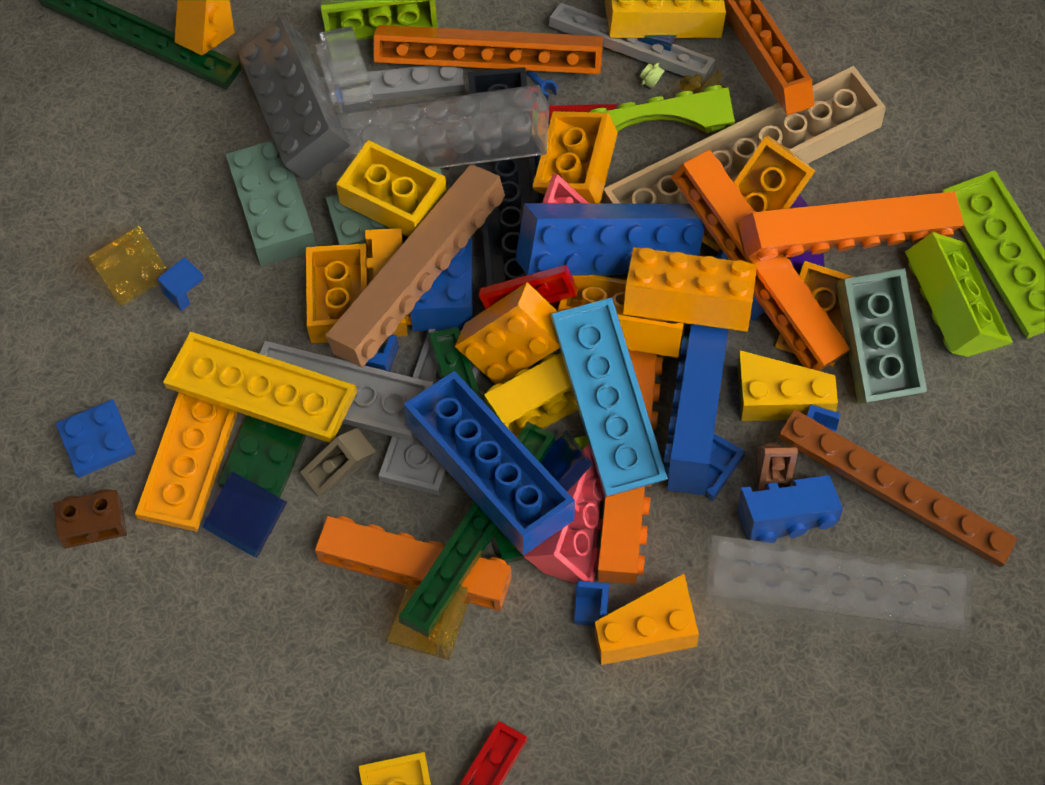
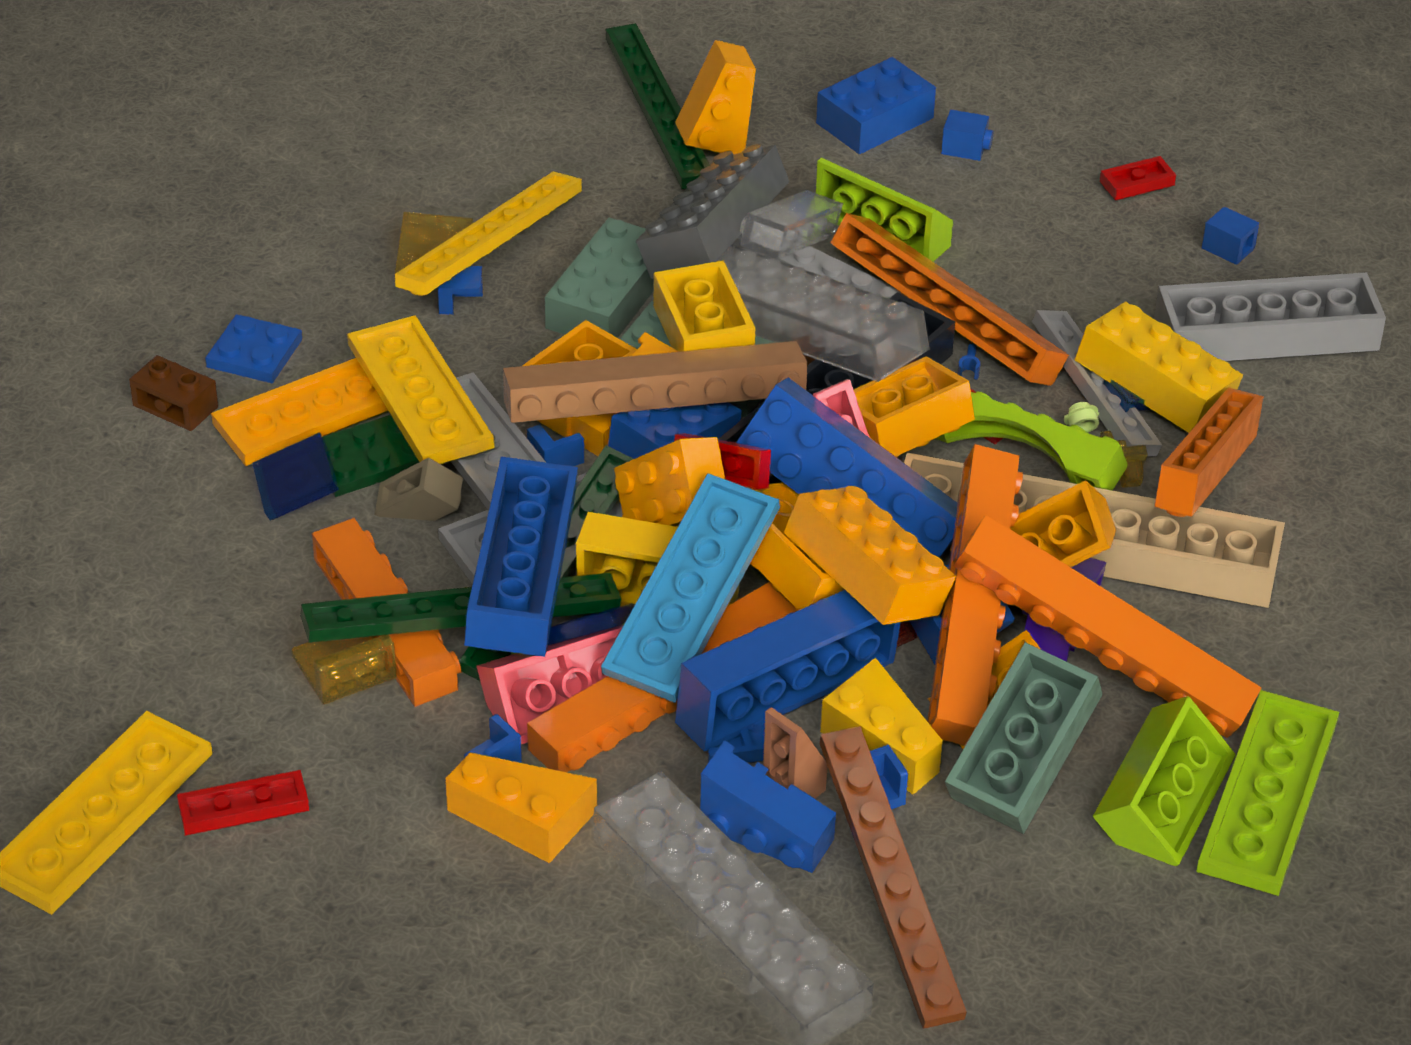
camera: 40 degrees right, 20 degrees down
(161, 229) = (487, 233): none -> yellow plate

